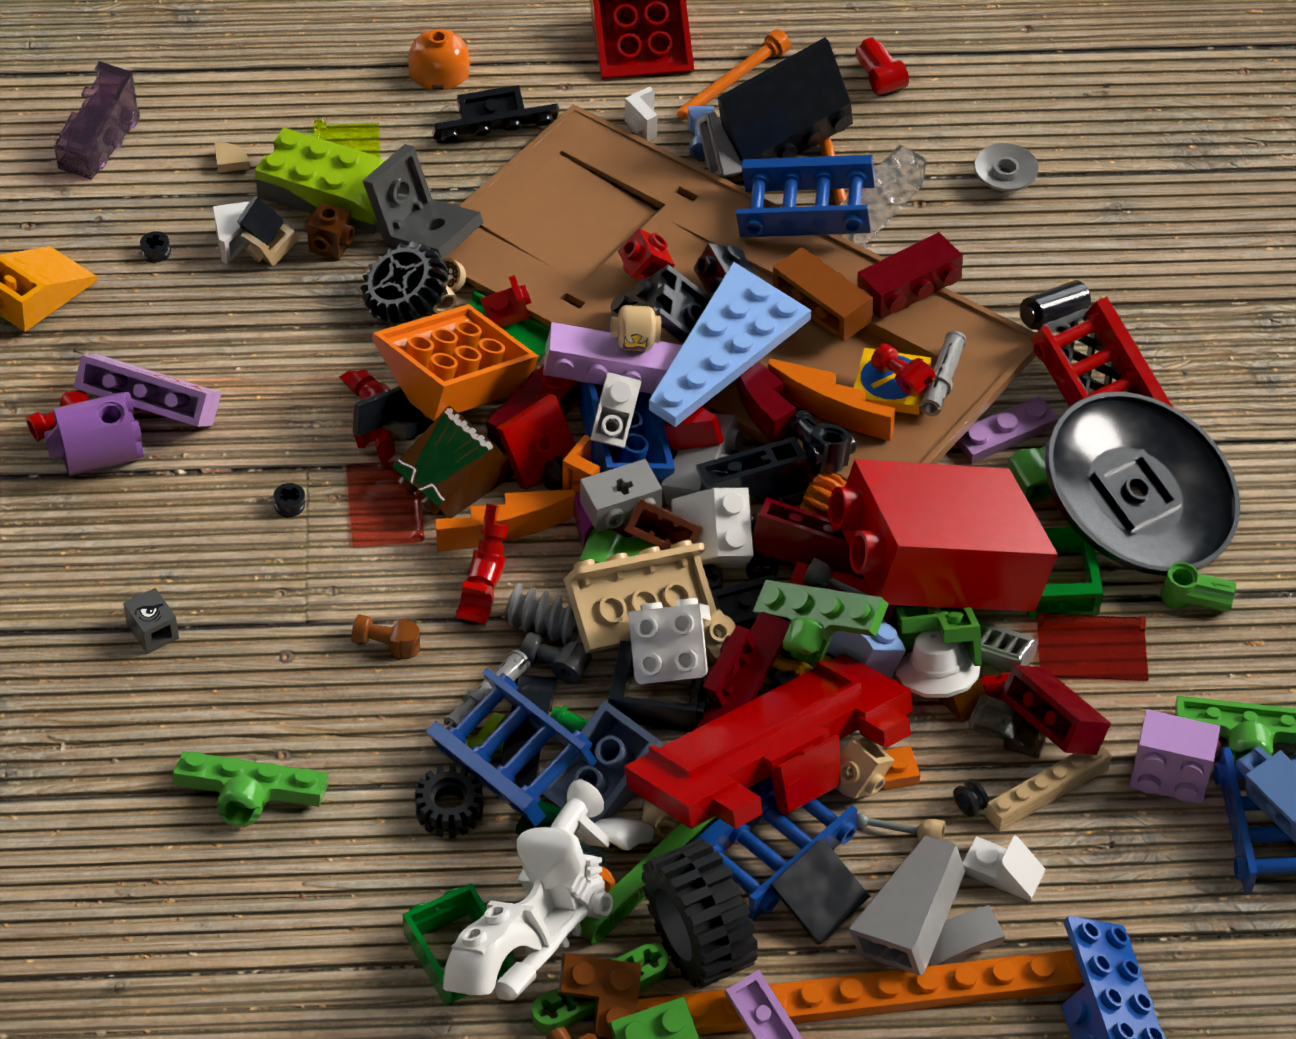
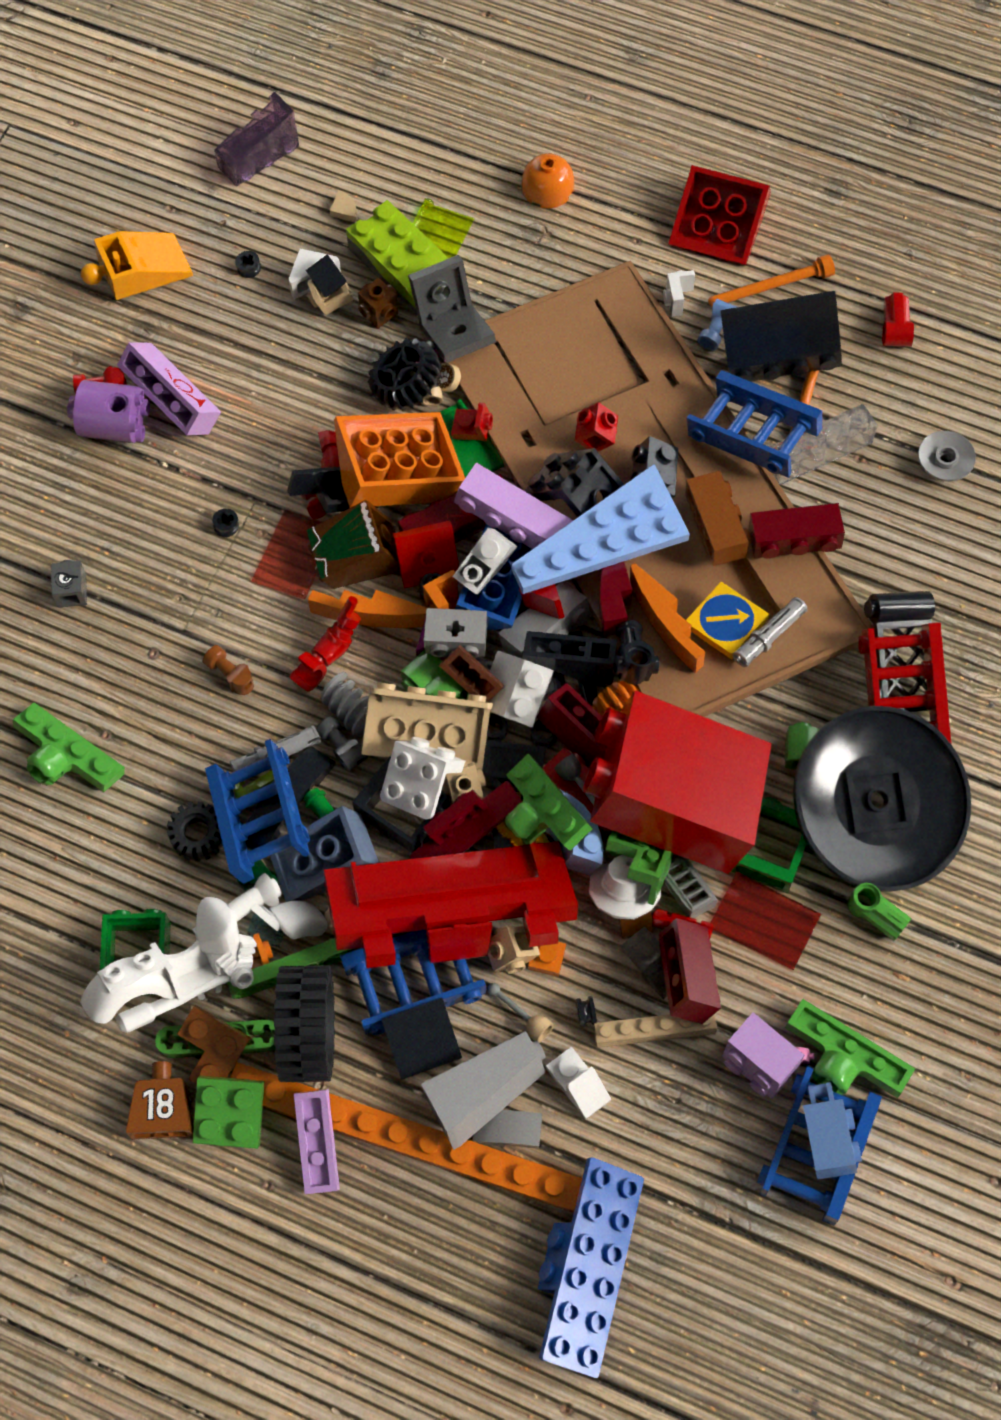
camera: 30 degrees right, 15 degrees up
(491, 111) = (561, 242): black bracket -> none
(636, 328) = (535, 496): tan head -> none
(717, 147) = (715, 352): light grey slope -> none
(910, 377) = (737, 625): red leg -> none
(1007, 429) = (810, 695): lavender plate -> none

